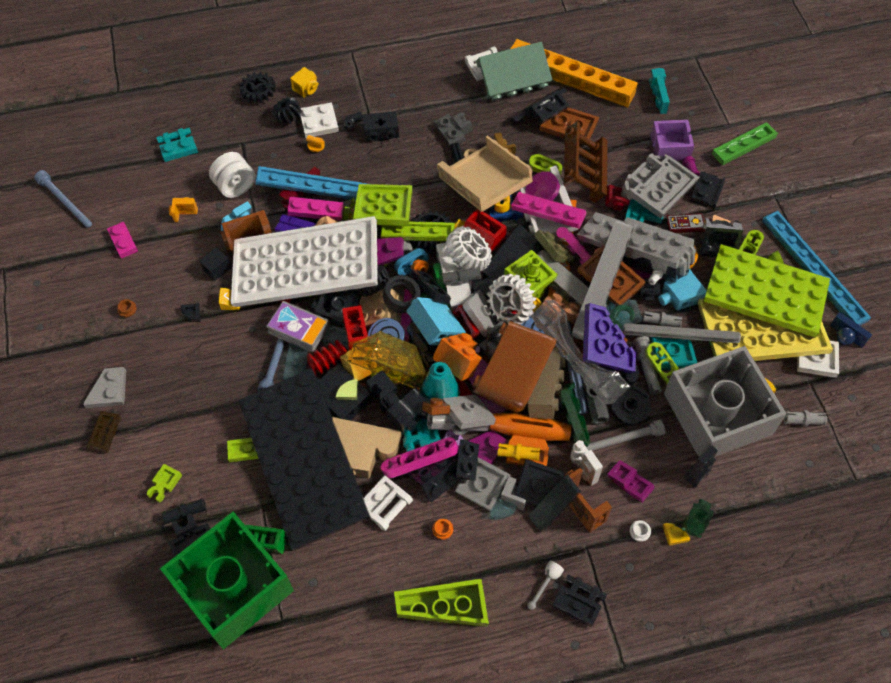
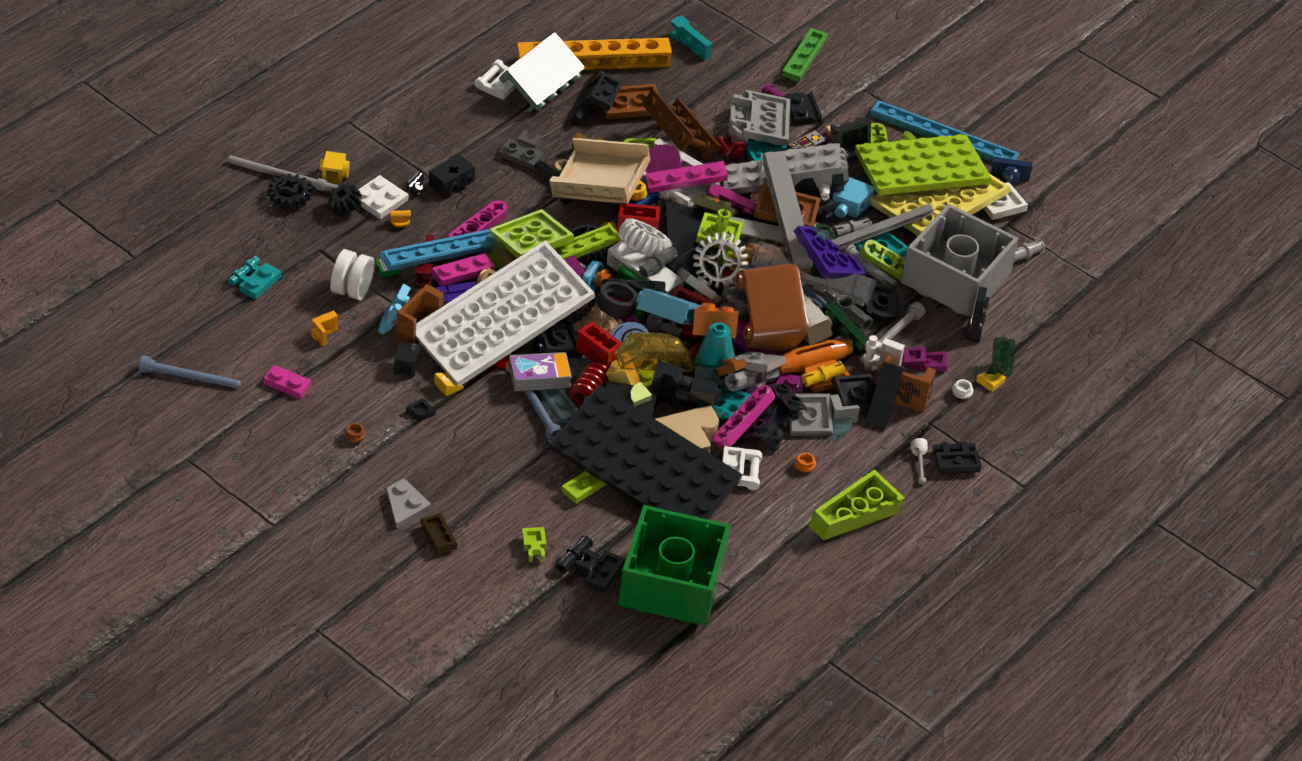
camera: 40 degrees left, 15 degrees down
(284, 90) = (320, 184): none -> light grey bar
(367, 173) = (495, 212): none -> dark pink beam
(672, 139) = (740, 74): medium lavender piece -> none

